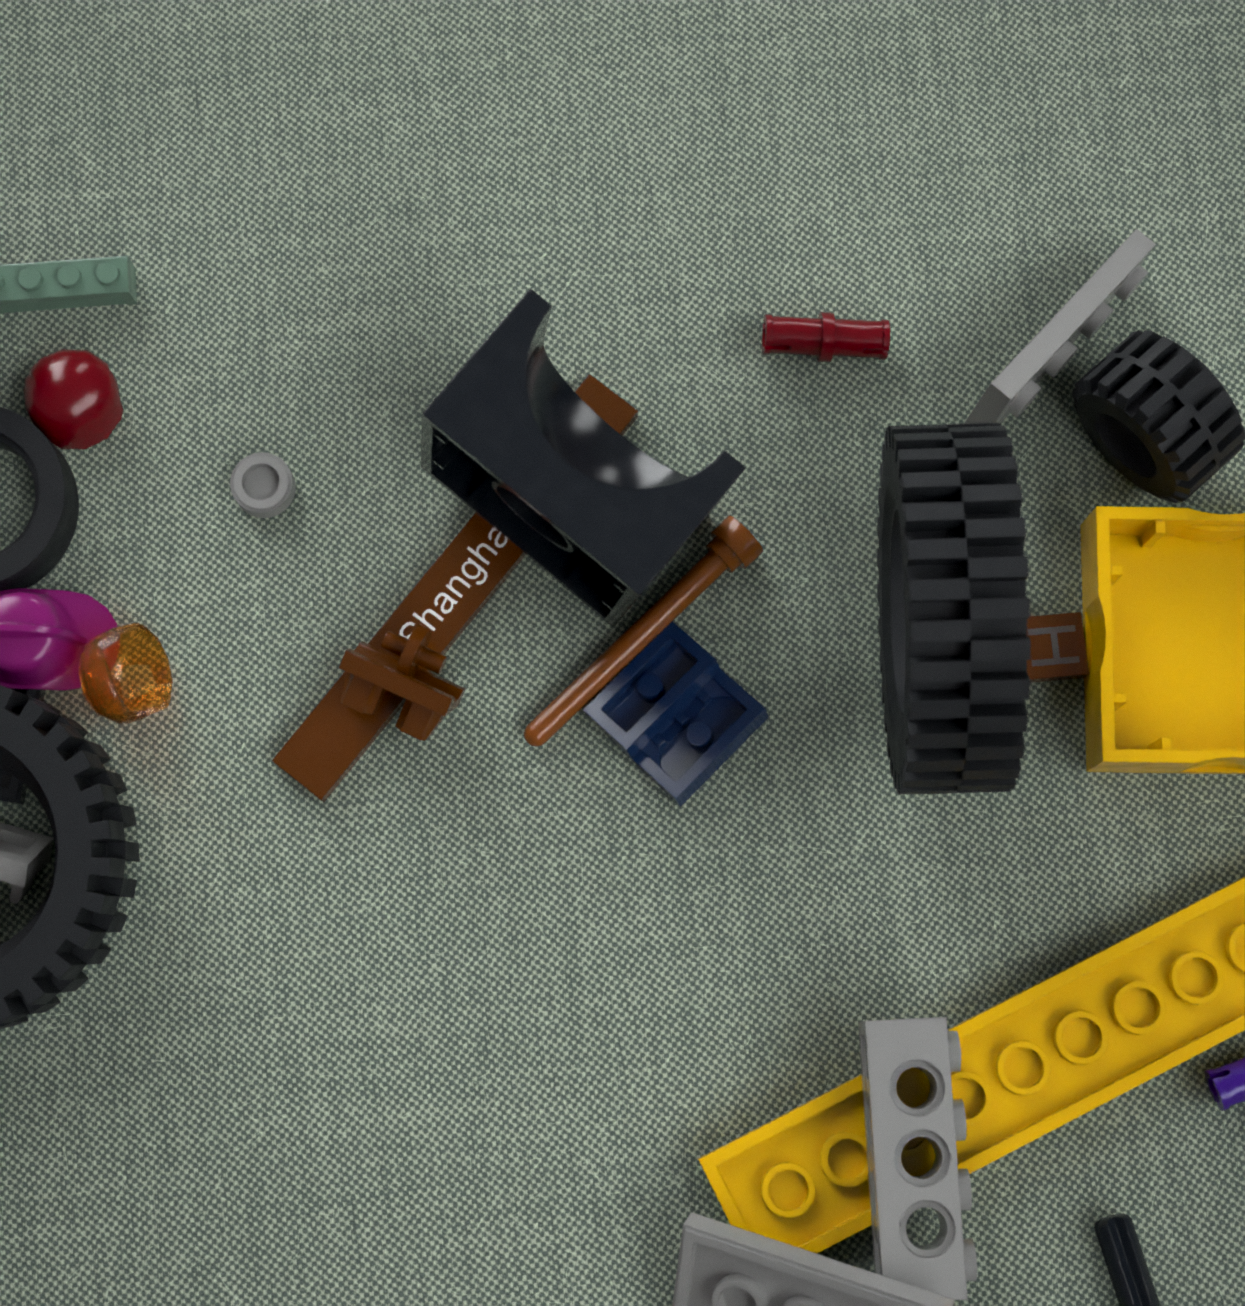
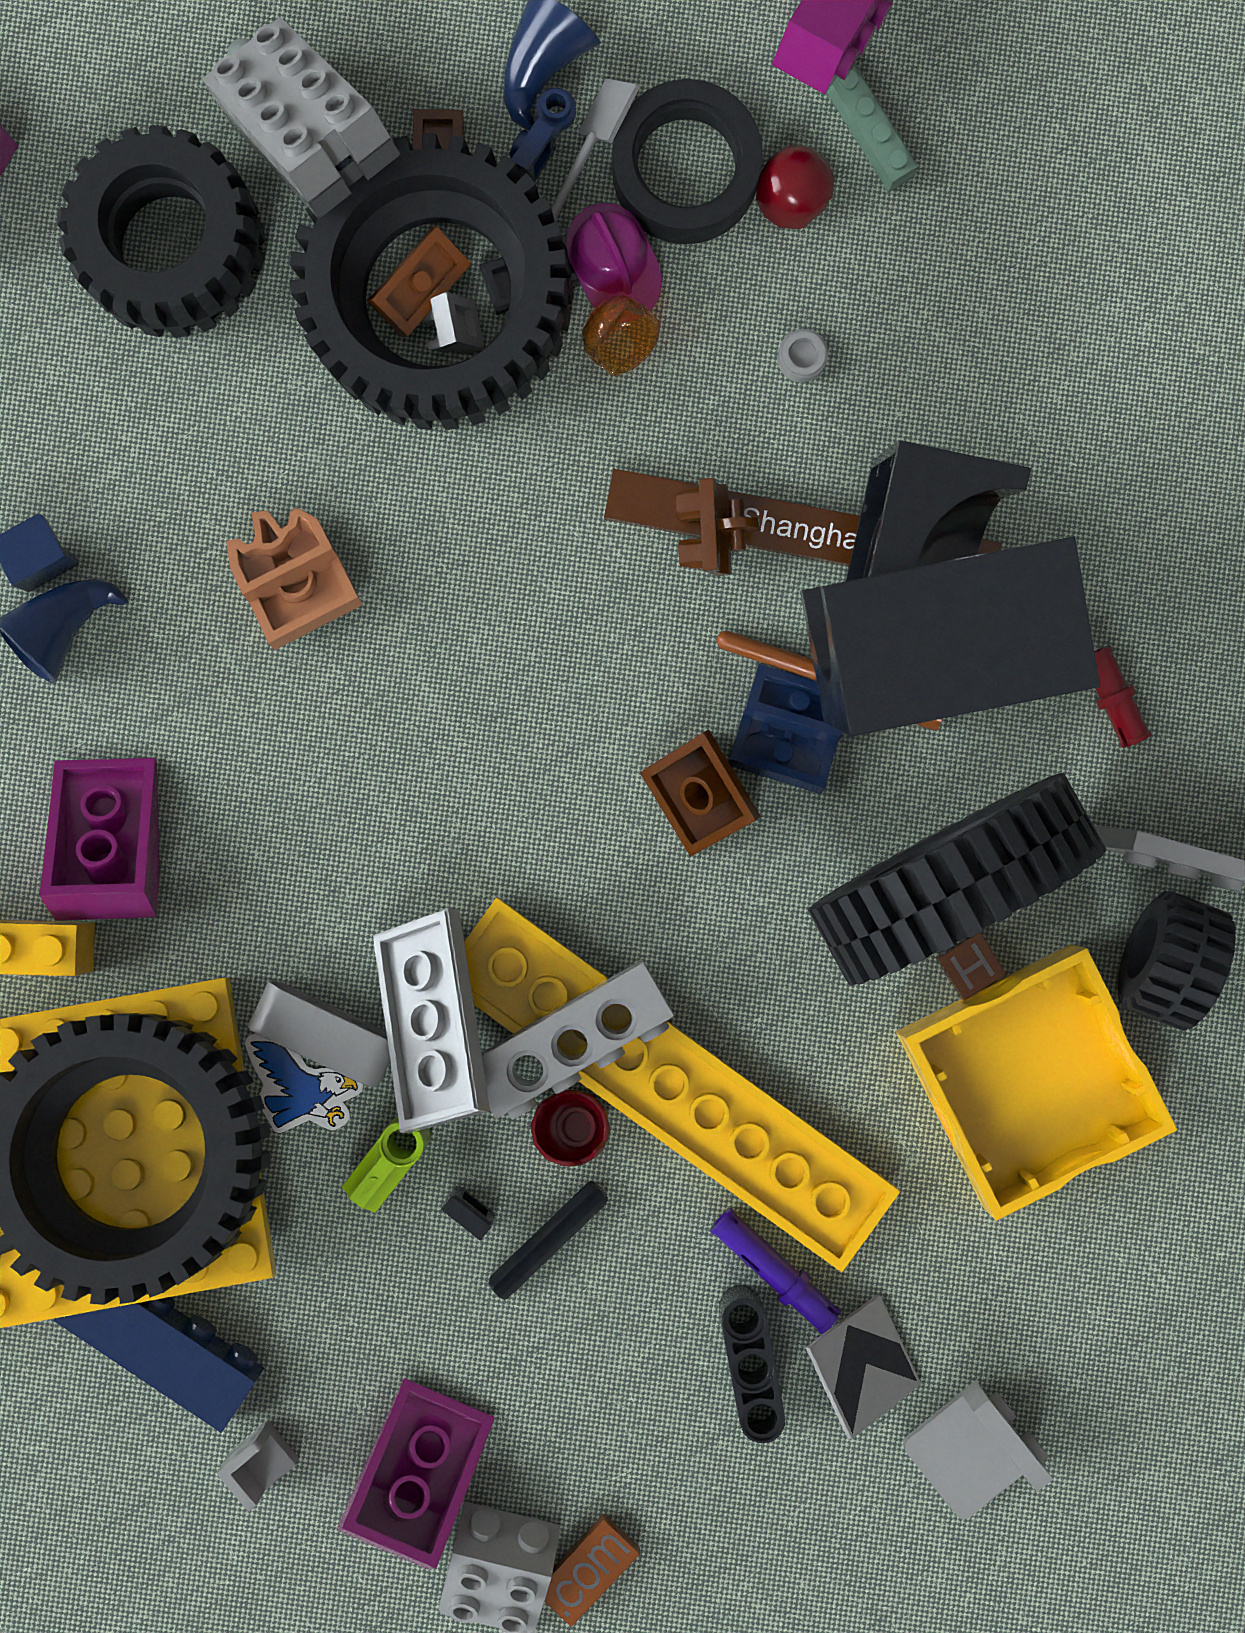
camera: 60 degrees right, 10 degrees up
(190, 1208) = (291, 576): none -> nougat plate
(677, 465) = (951, 637): none -> black piece
(698, 853) = (700, 793): none -> reddish brown slope
(1020, 1214) = (570, 1128): none -> dark red hair

